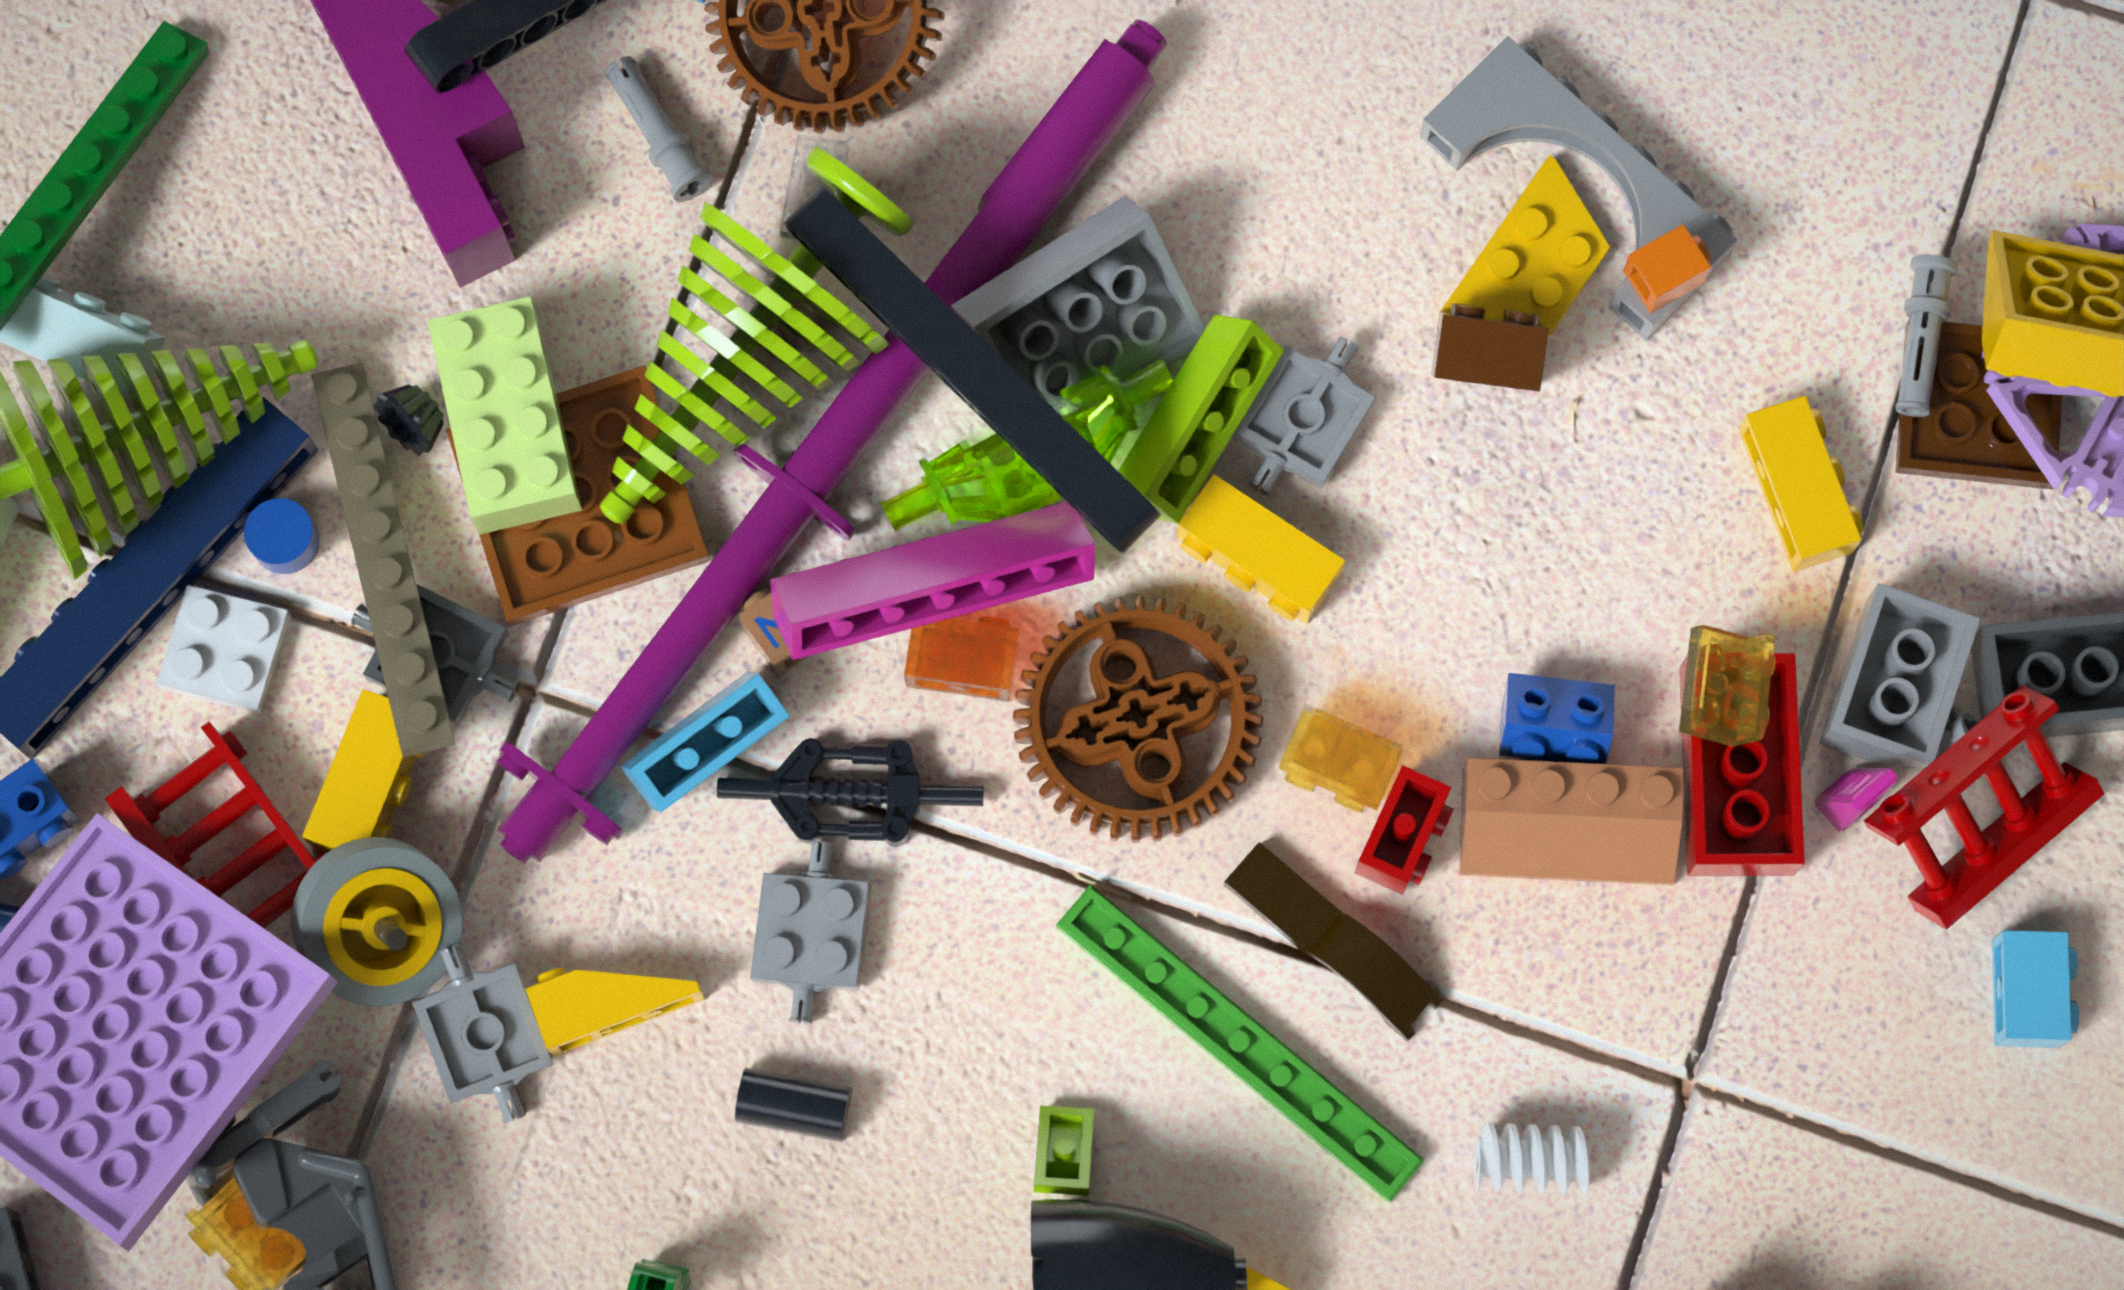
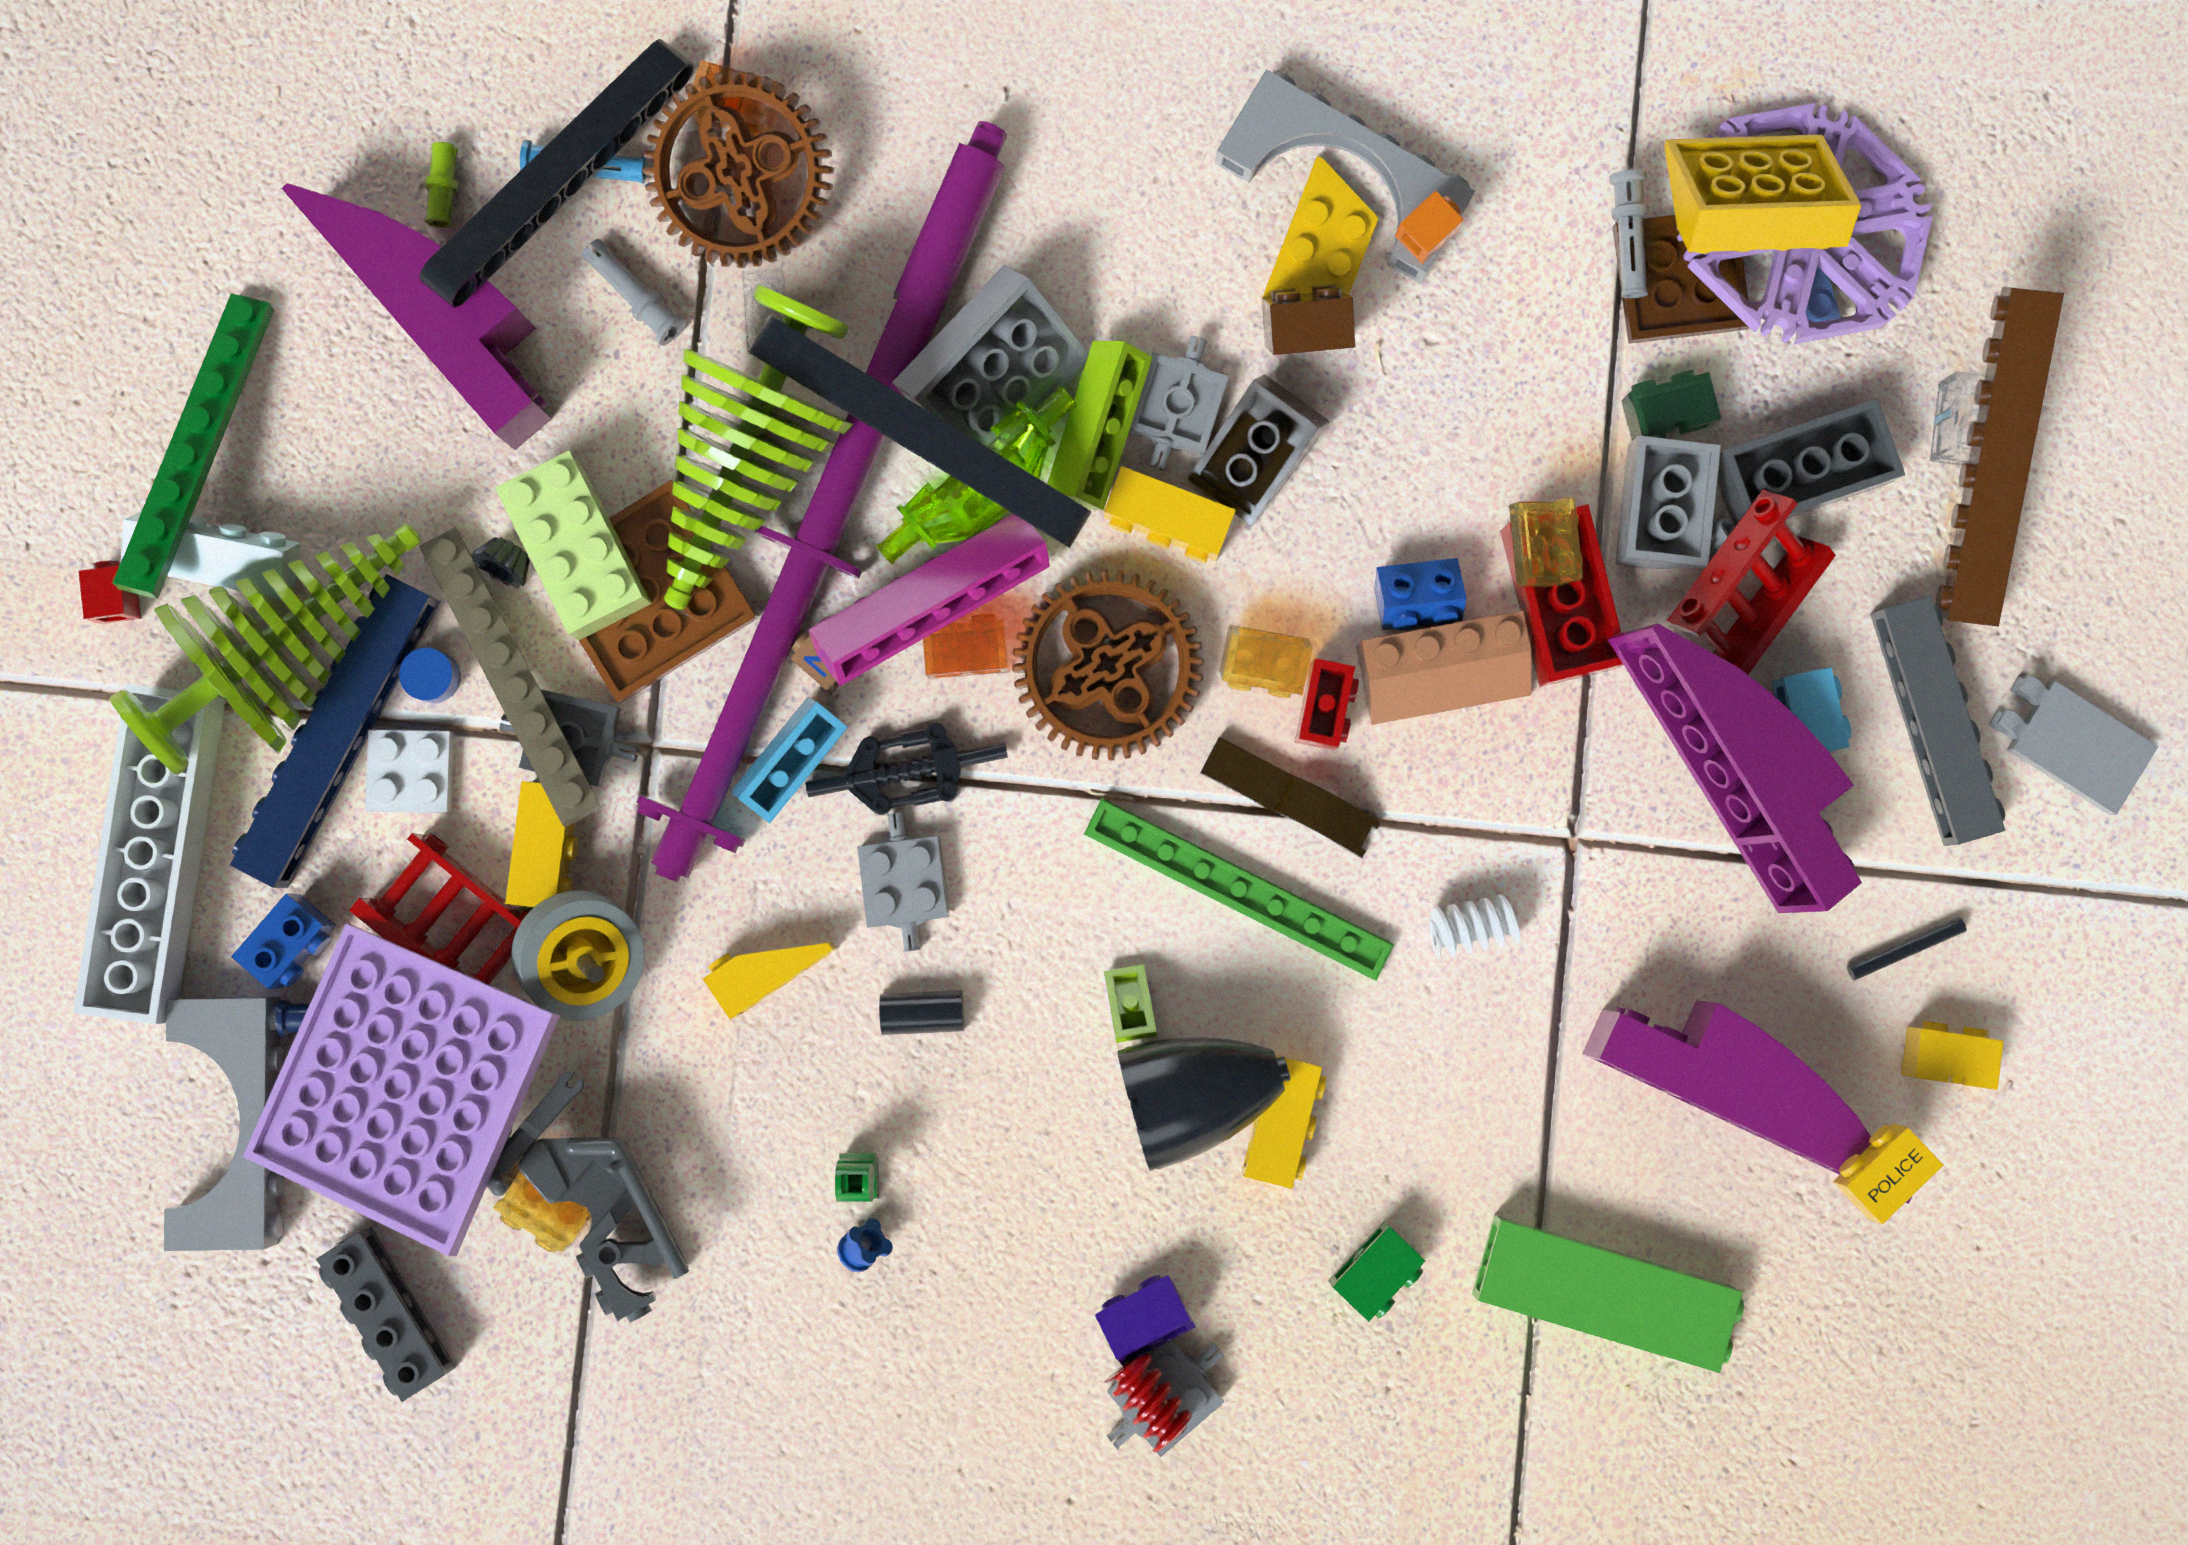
camera: 15 degrees left, 10 degrees up
(482, 1032) = (678, 1016): light grey plate -> none
(1392, 494) = (1258, 448): none -> dark brown slope
(1801, 483) = (1561, 368): yellow brick -> none
(1854, 795) = (1652, 599): dark pink slope -> none
(1934, 1025) = (1751, 763): none -> magenta slope
(1935, 559) = (1682, 404): none -> clear green brick

